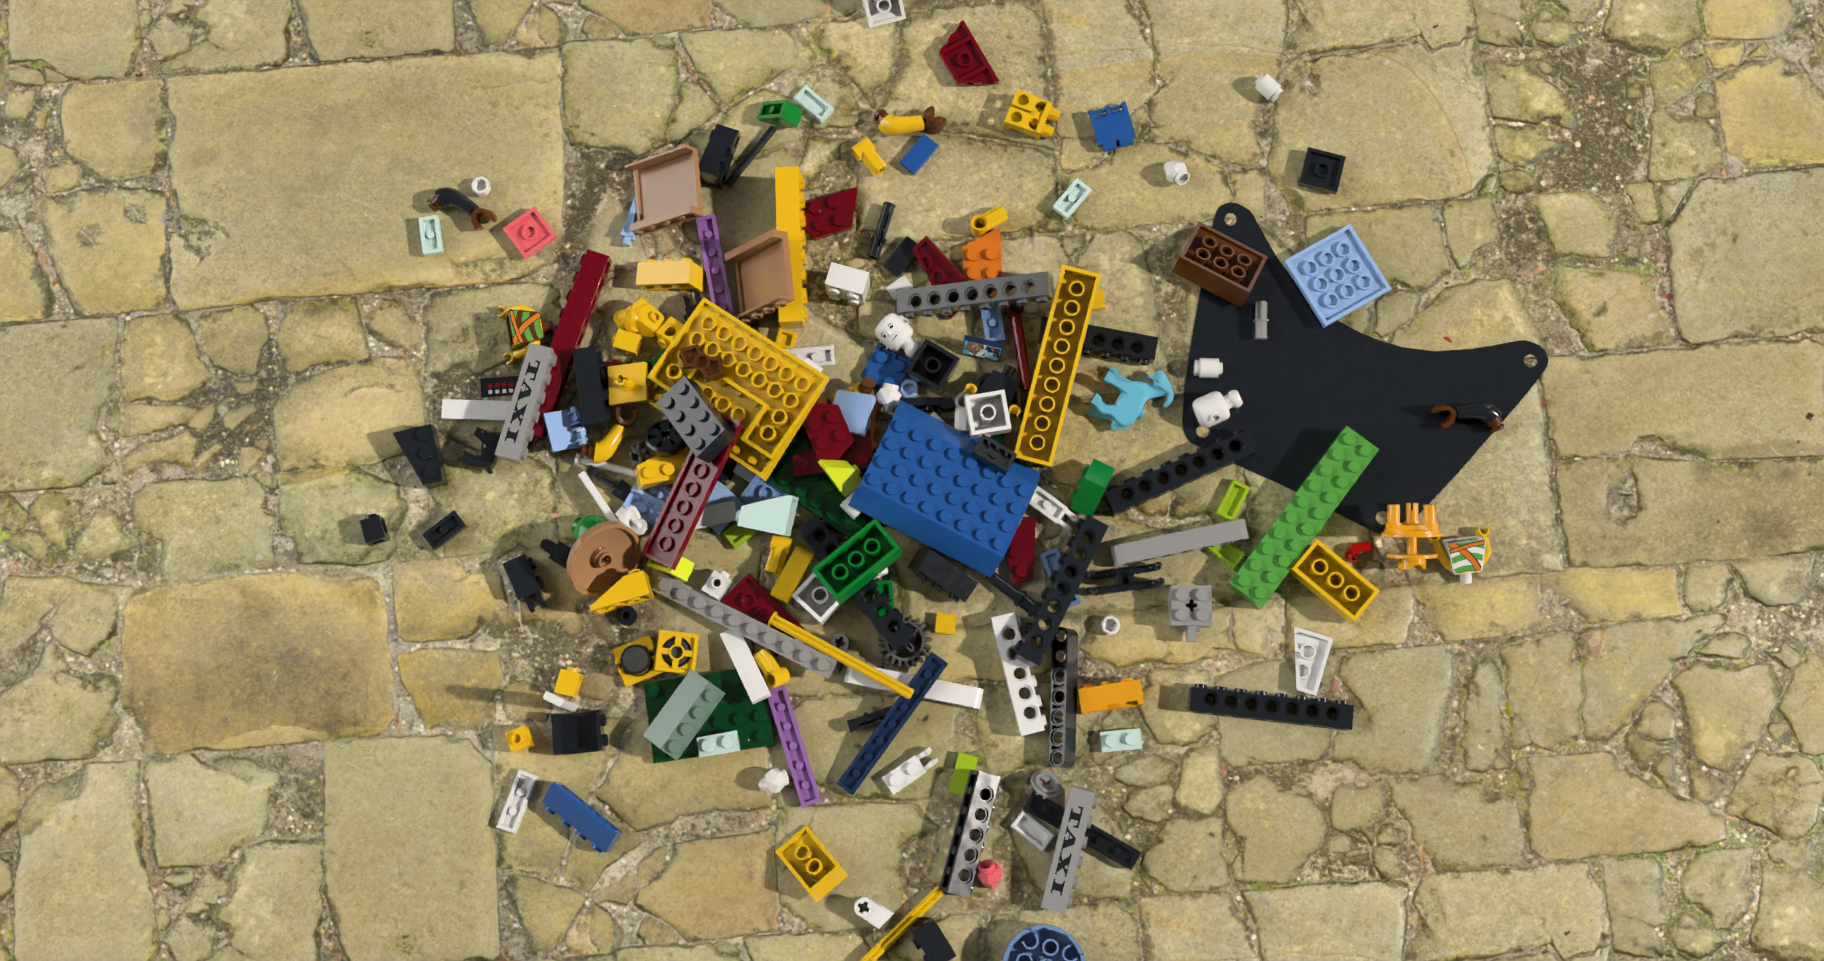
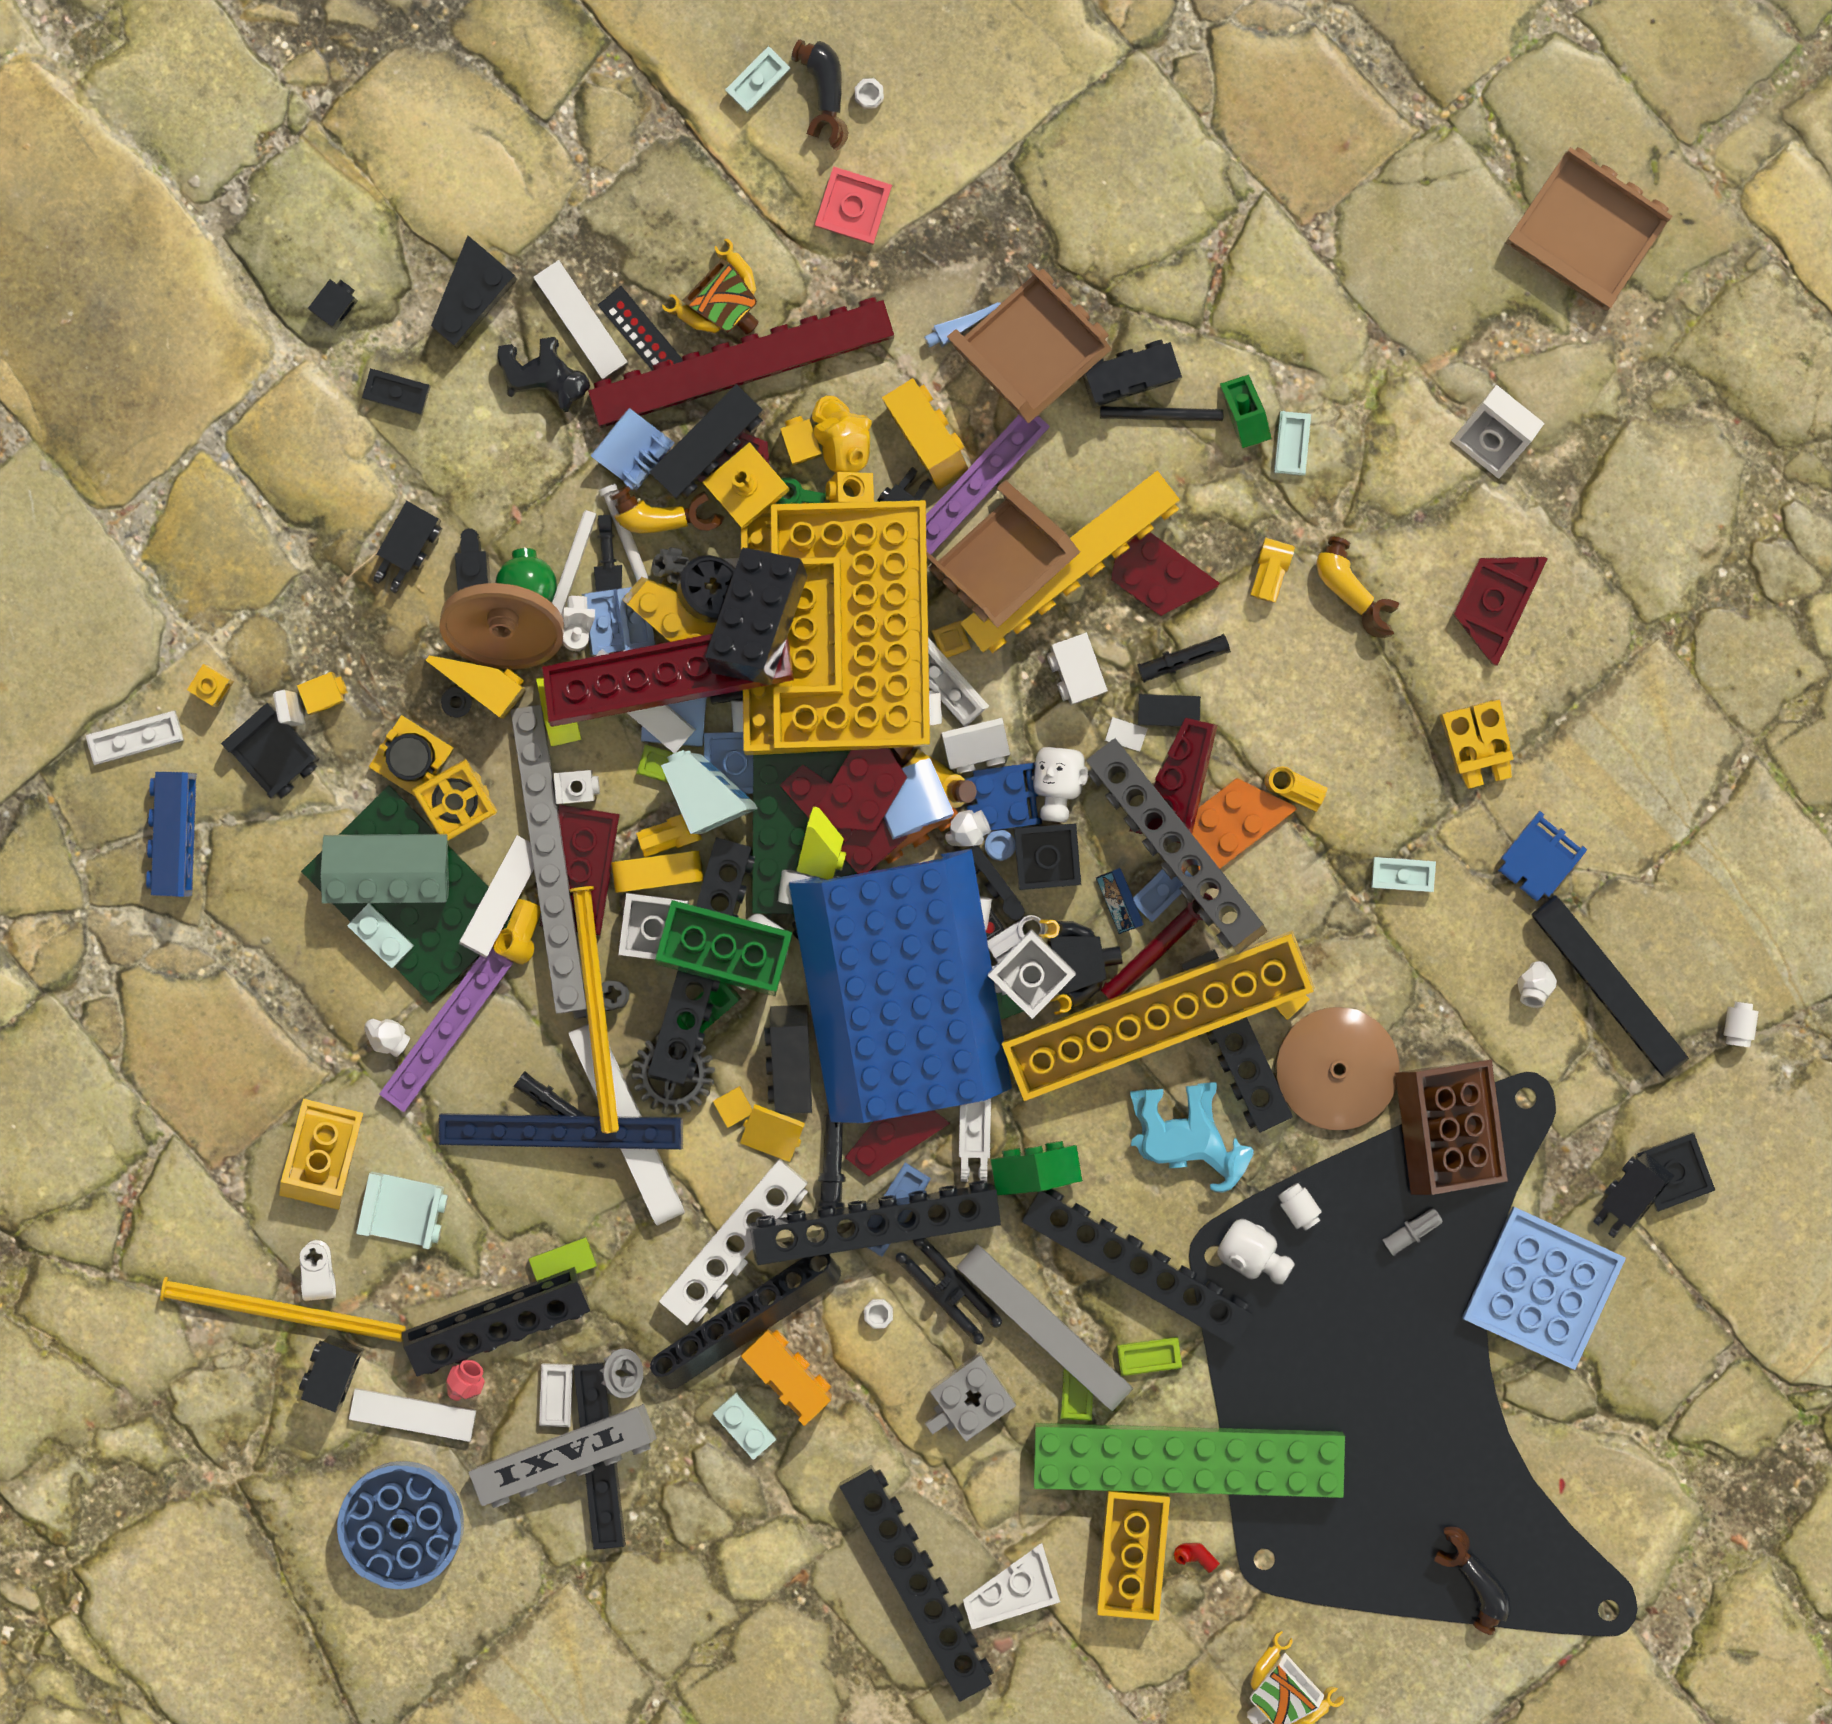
camera: 50 degrees right, 10 degrees up
(525, 404) = (625, 378): light grey brick -> none
(694, 358) = (836, 551): reddish brown tile -> none
(847, 362) = (975, 745): none -> white slope
(873, 841) = (402, 1209): none -> light aqua panel
(908, 772) = (517, 1192): white hinge -> none
(919, 154) = (1322, 631): blue tile -> none
(974, 612) = (772, 1133): none -> yellow piece
(988, 917) = (412, 1414): none -> white tile
(994, 454) = (984, 1019): black bracket -> none
(1139, 315) = (1308, 1061): none -> medium nougat dish
(1203, 137) = (1609, 986): none -> black beam
(1319, 196) = (1634, 1193): none -> black hinge
(1411, 529) = (1262, 1609): light orange piece -> none

